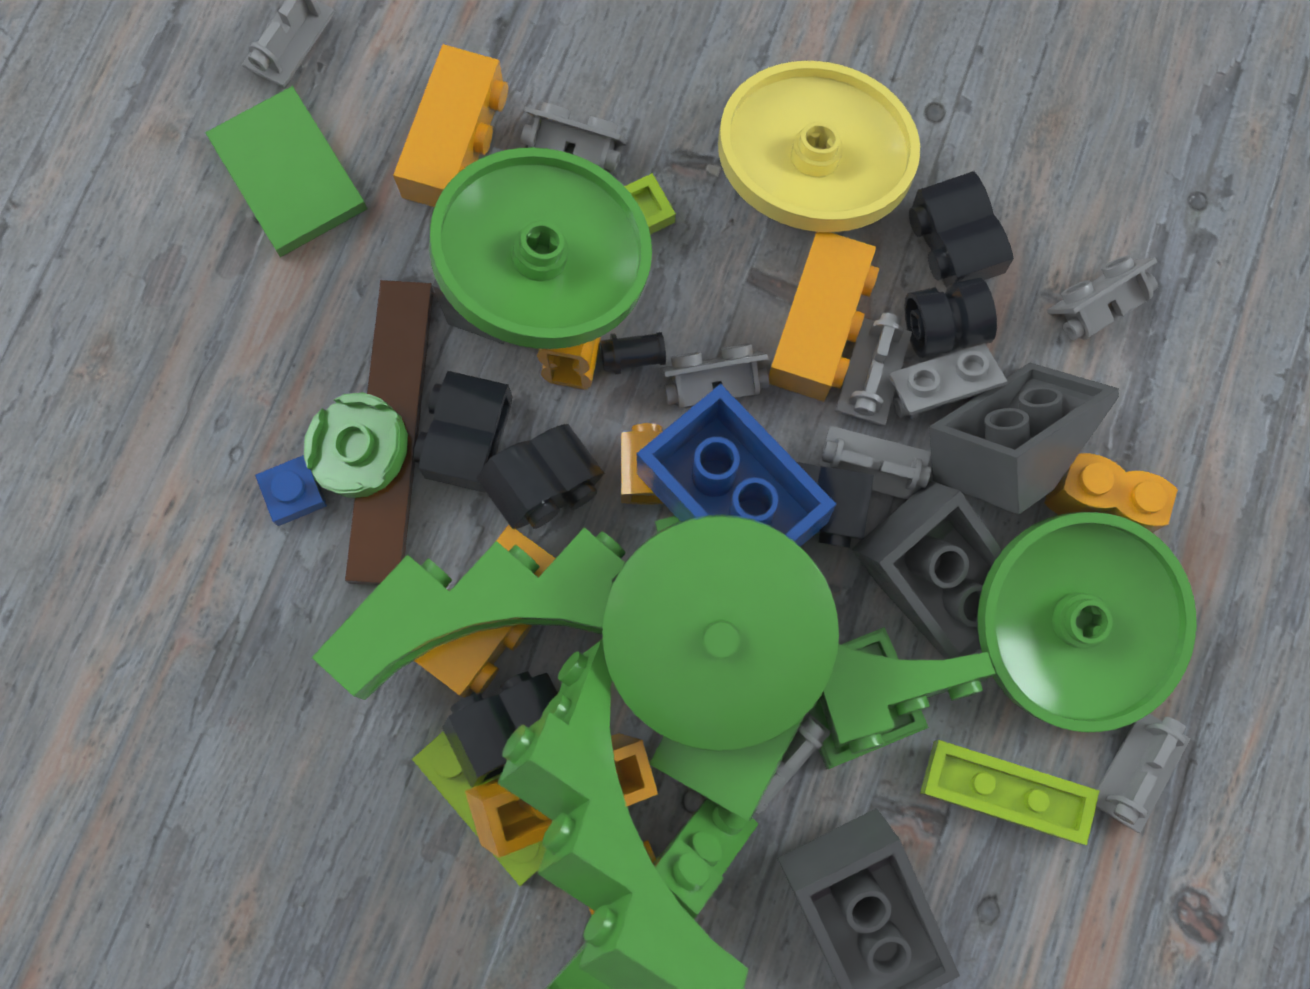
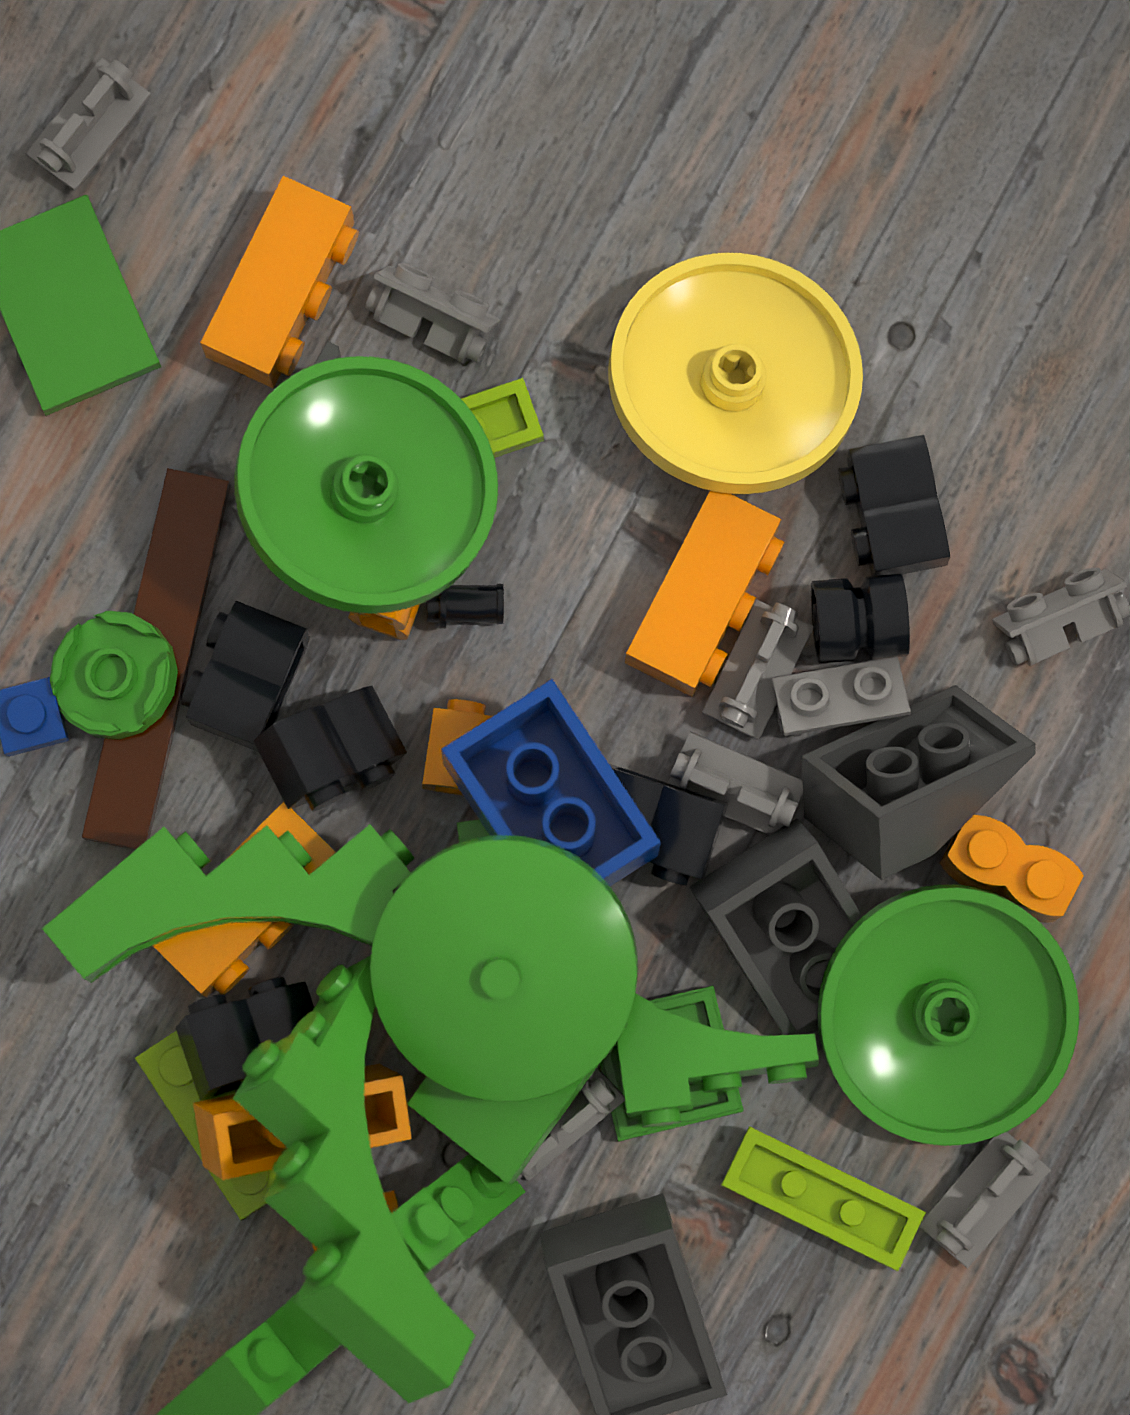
camera: 10 degrees right, 5 degrees up
(735, 370) = (537, 643): light grey hinge -> none

